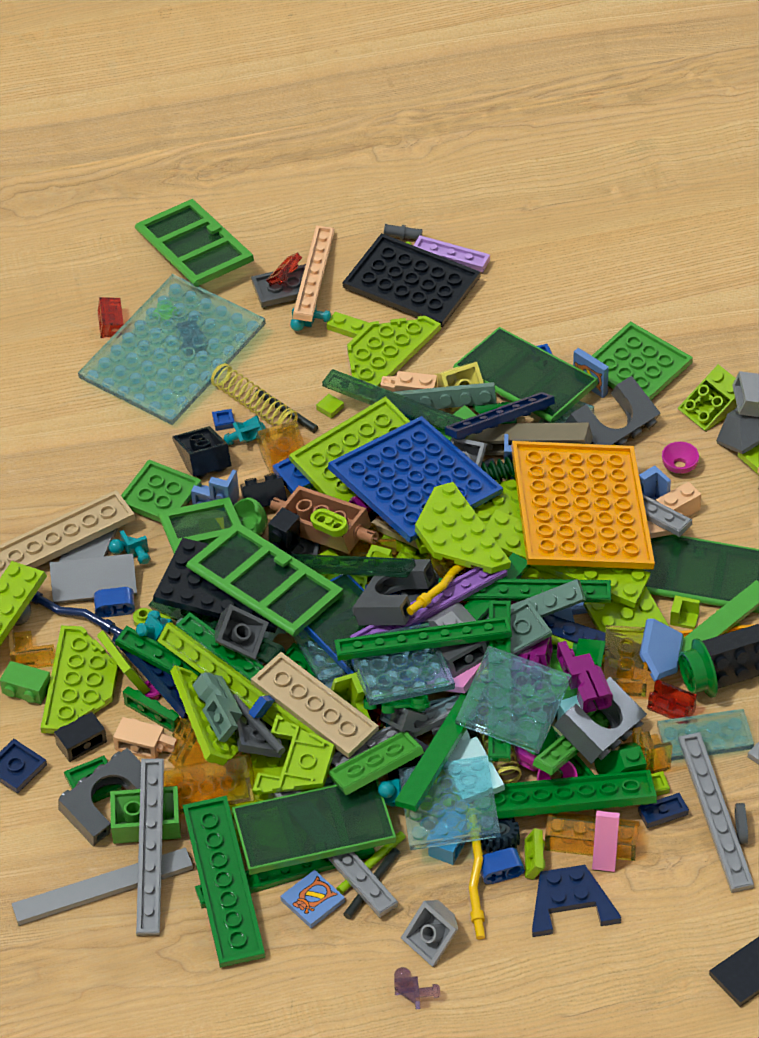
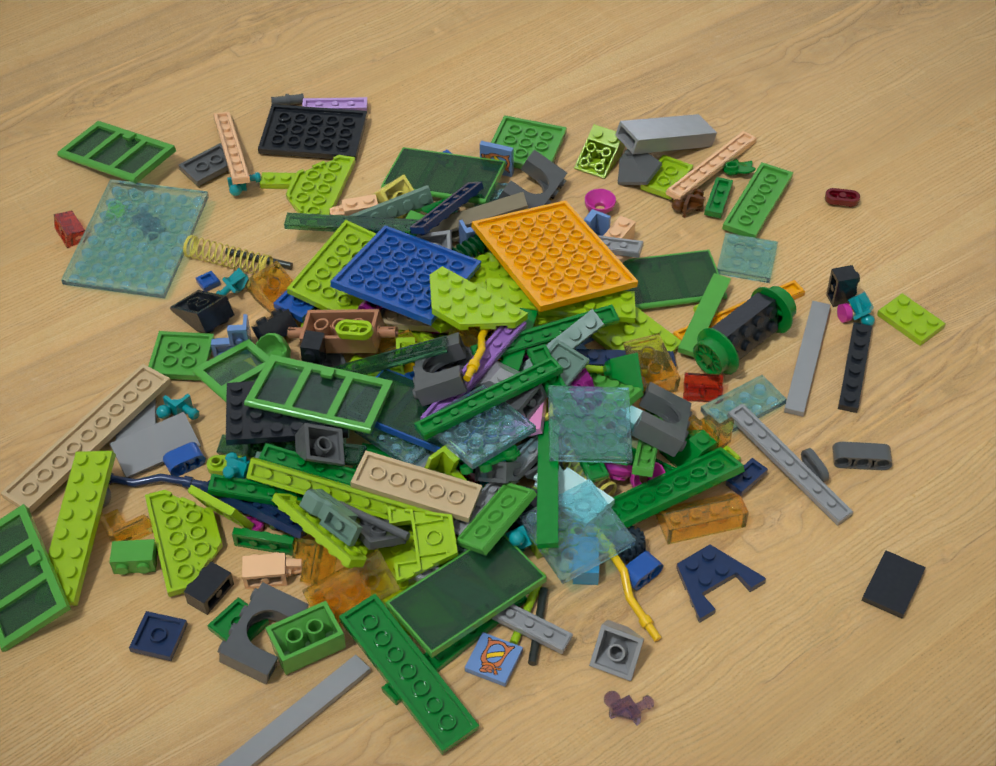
camera: 25 degrees left, 0 degrees up
(150, 847) = (328, 666): light grey tile -> none
(261, 706) = (370, 503): blue tile -> none
(288, 265) = (205, 150): clear red plate -> none
(330, 406) = (294, 244): lime tile -> none
(534, 849) = (664, 550): lime plate -> none
(585, 677) = (641, 387): magenta plate -> none
(605, 841) = (724, 517): bright pink tile -> none
(661, 649) = (675, 347): medium blue tile -> none
(684, 612) = (670, 315): lime panel -> none

